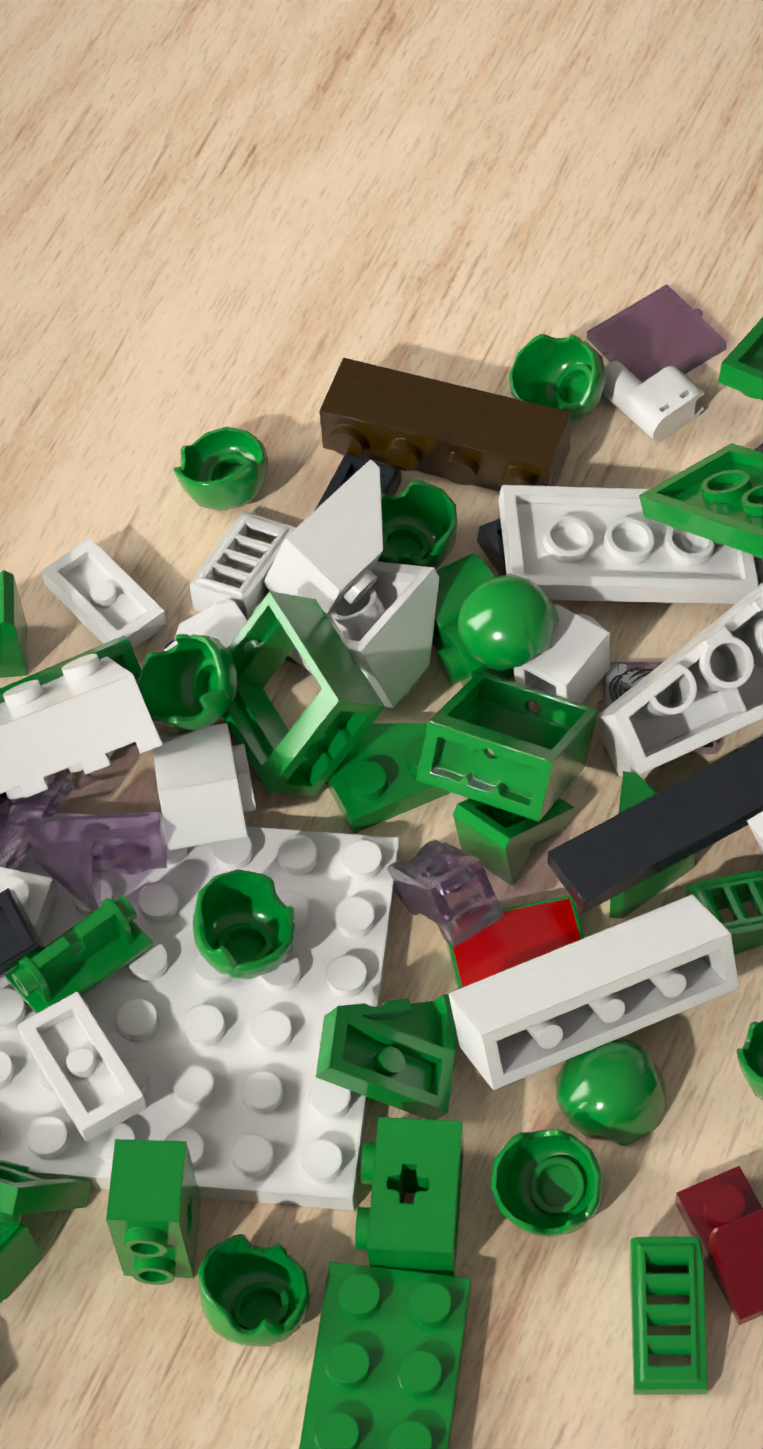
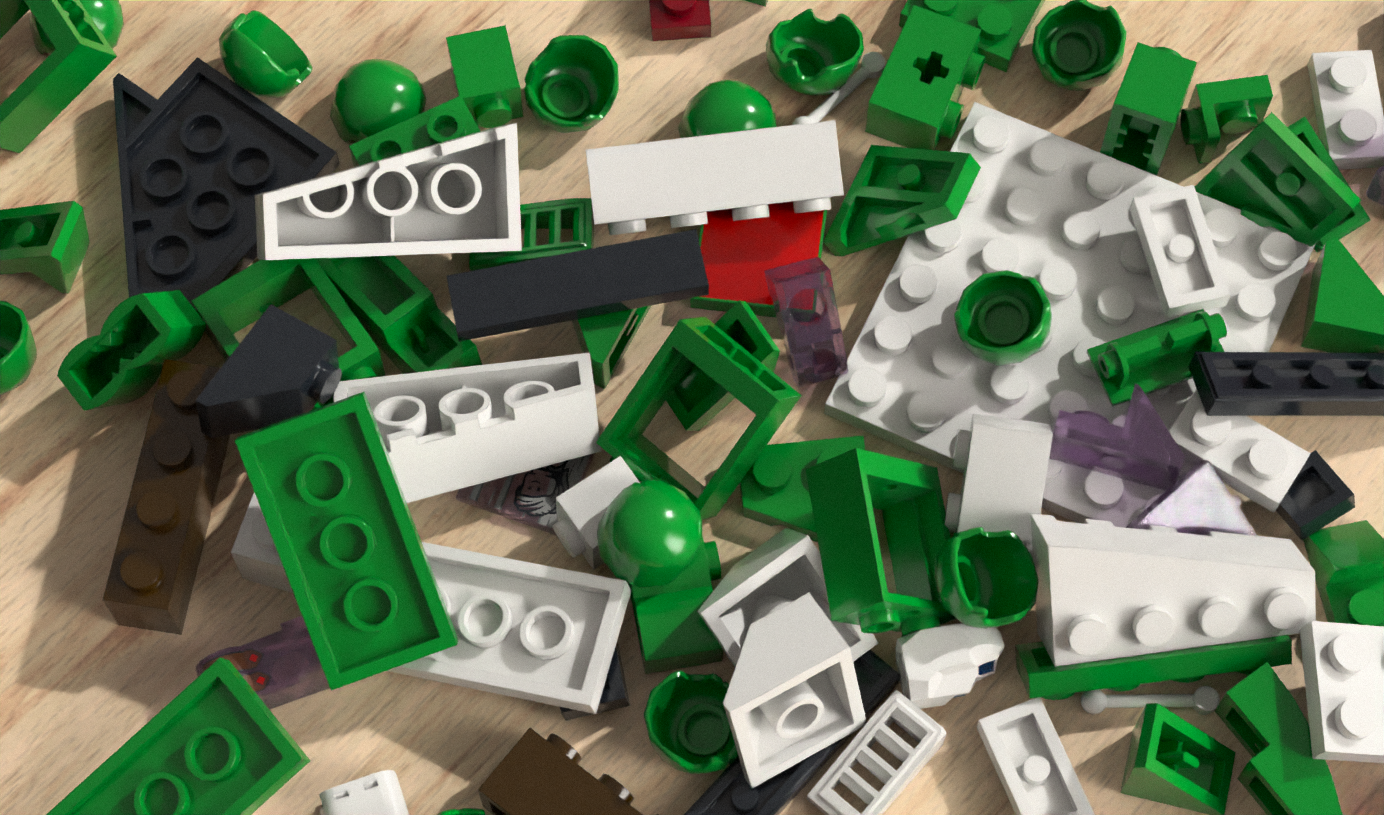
camera: 165 degrees left, 10 degrees up
(71, 1279) = (1223, 106): none -> green bracket
(482, 1221) = (871, 67): none -> white hinge

